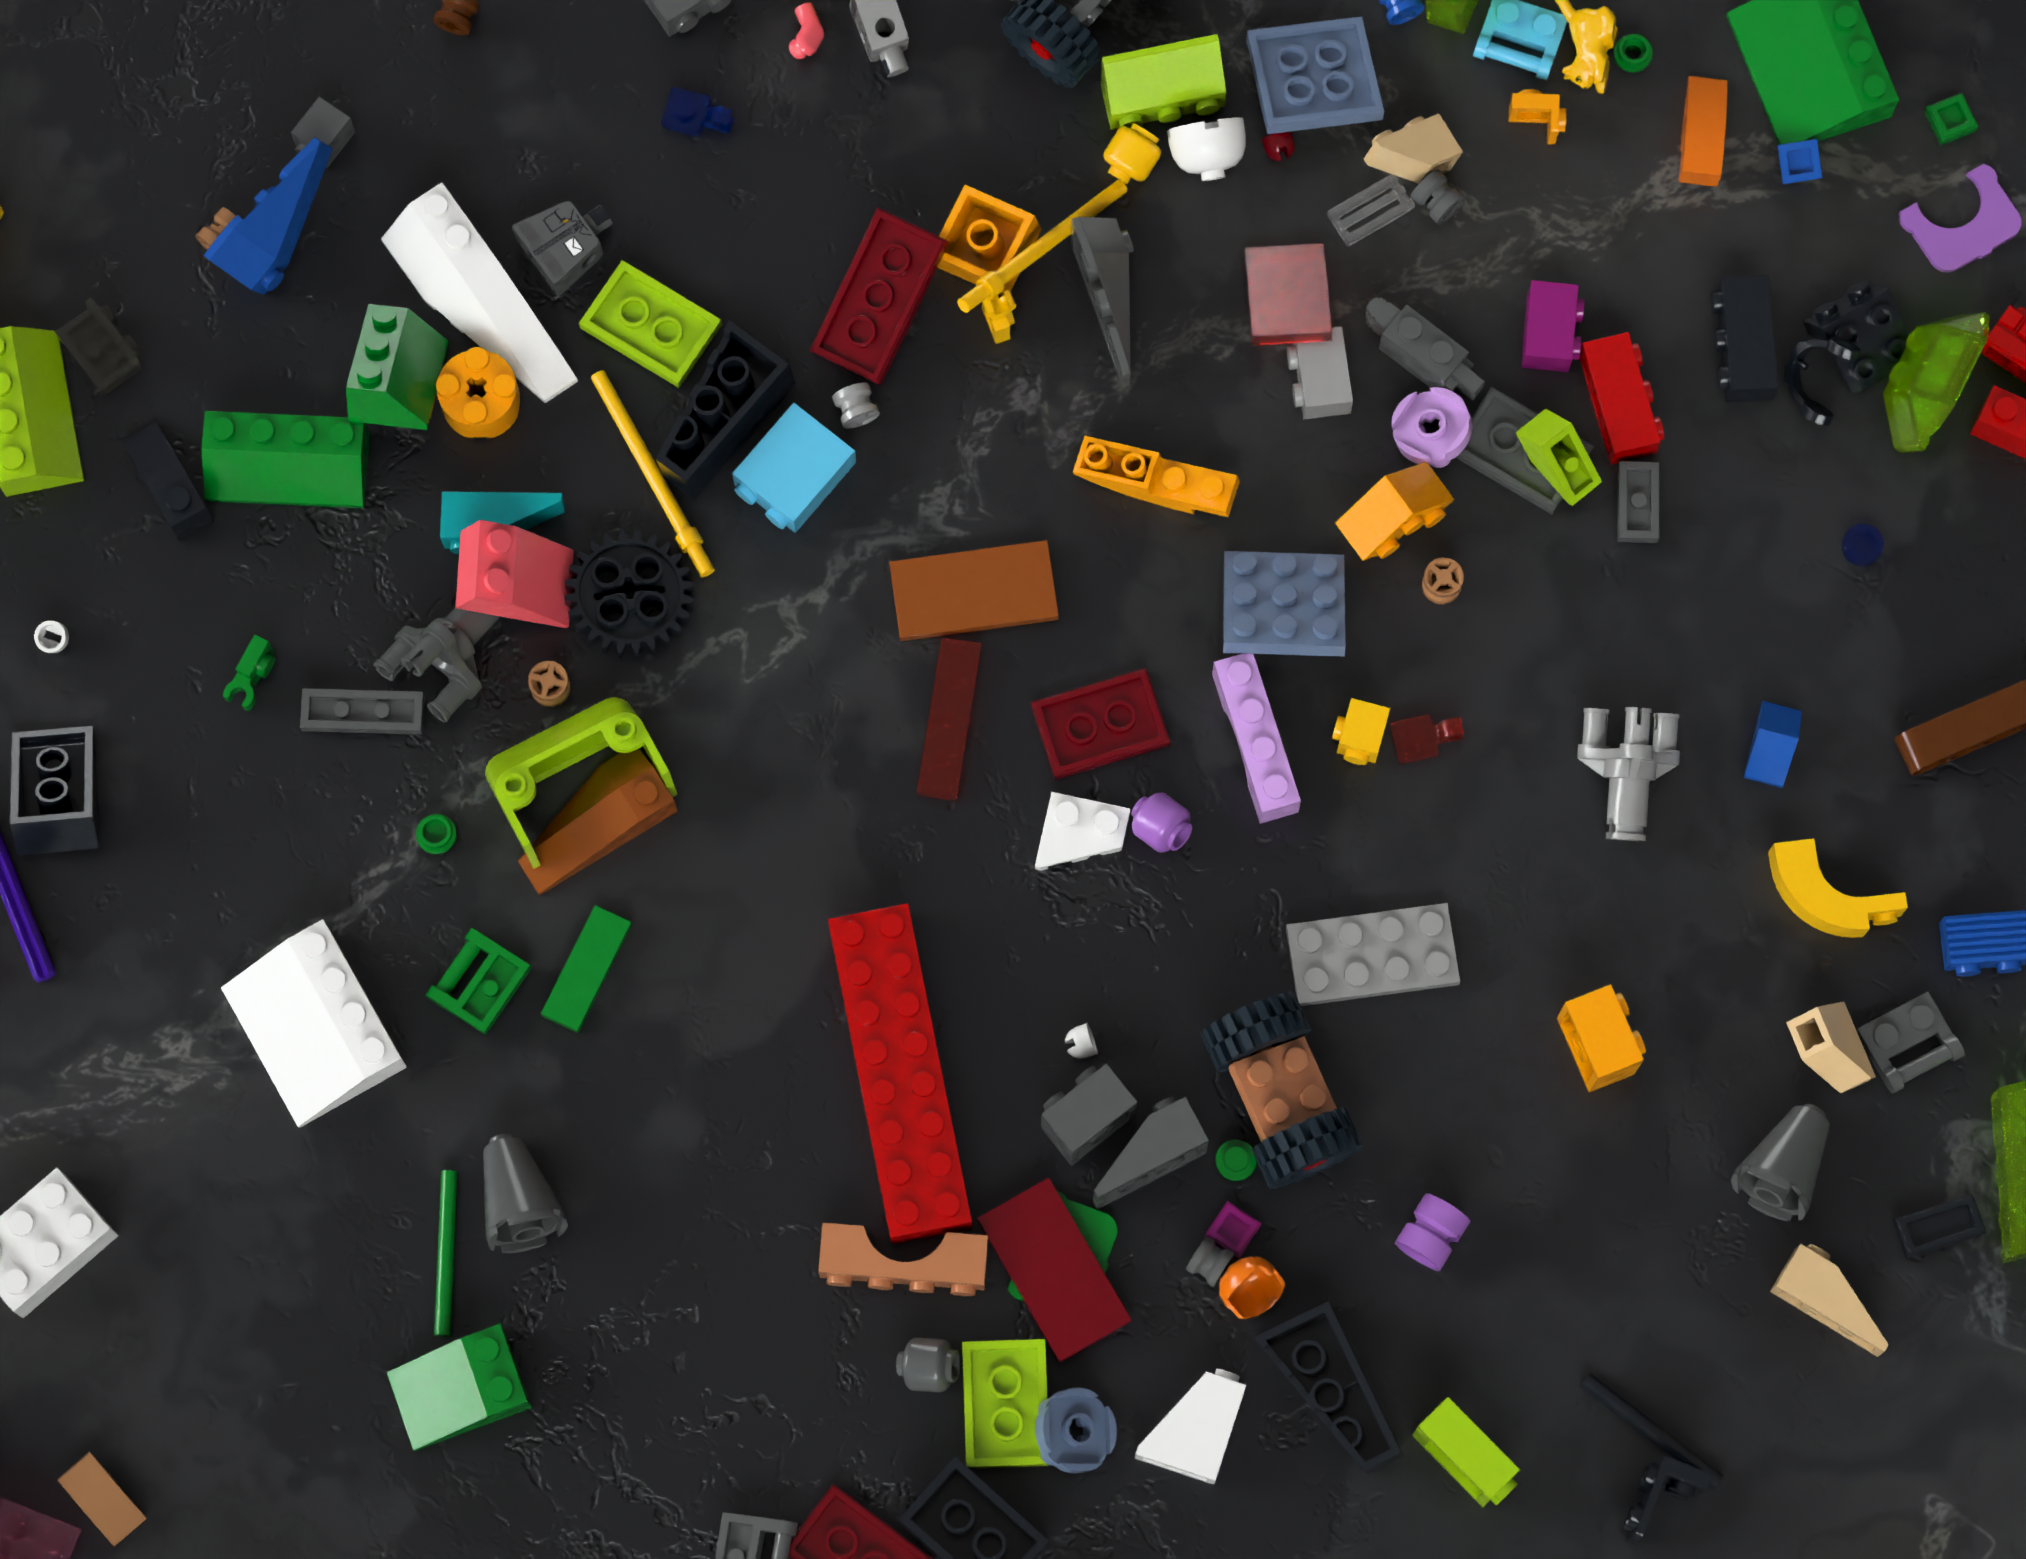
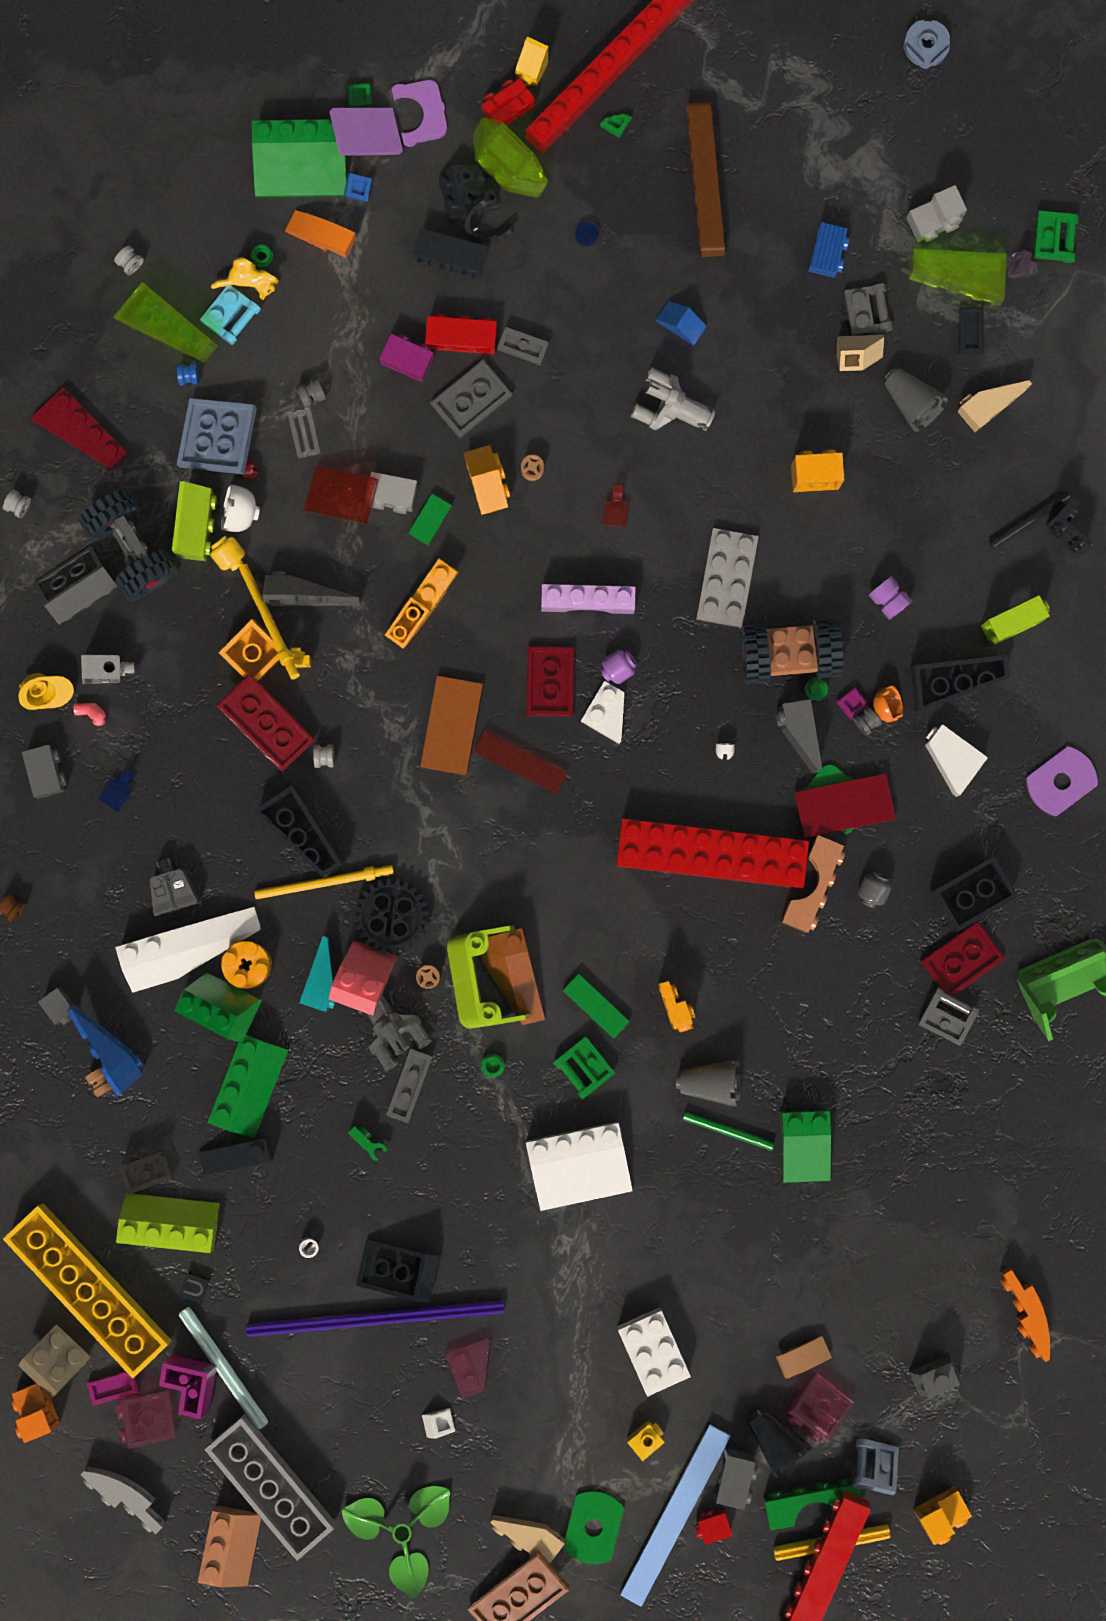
camera: 75 degrees left, 10 degrees up
(613, 1098) = (678, 1012): none -> light orange plate
(650, 324) = (236, 855): lime plate -> none
(793, 469) = (349, 802): medium azure brick -> none
(1002, 1400) = (908, 855): lime plate -> none
(1053, 1433) = (933, 834): sand blue plate -> none
(1087, 1113) = (769, 759): dark grey brick -> none
(1284, 603) = (519, 558): sand blue plate -> none
(1299, 449) = (430, 519): none -> green tile
(1361, 731) = (603, 541): yellow brick -> none
(1415, 149) = (281, 394): tan slope -> none
(1422, 348) = (397, 432): dark grey hinge -> none
(1439, 446) = (430, 440): lavender plate -> none
(1535, 107) = (275, 321): light orange bracket -> none
(1559, 455) = (485, 379): lime slope -> none
(1820, 905) = (771, 334): yellow arch -> none
(1893, 141) = (366, 131): none -> medium lavender tile

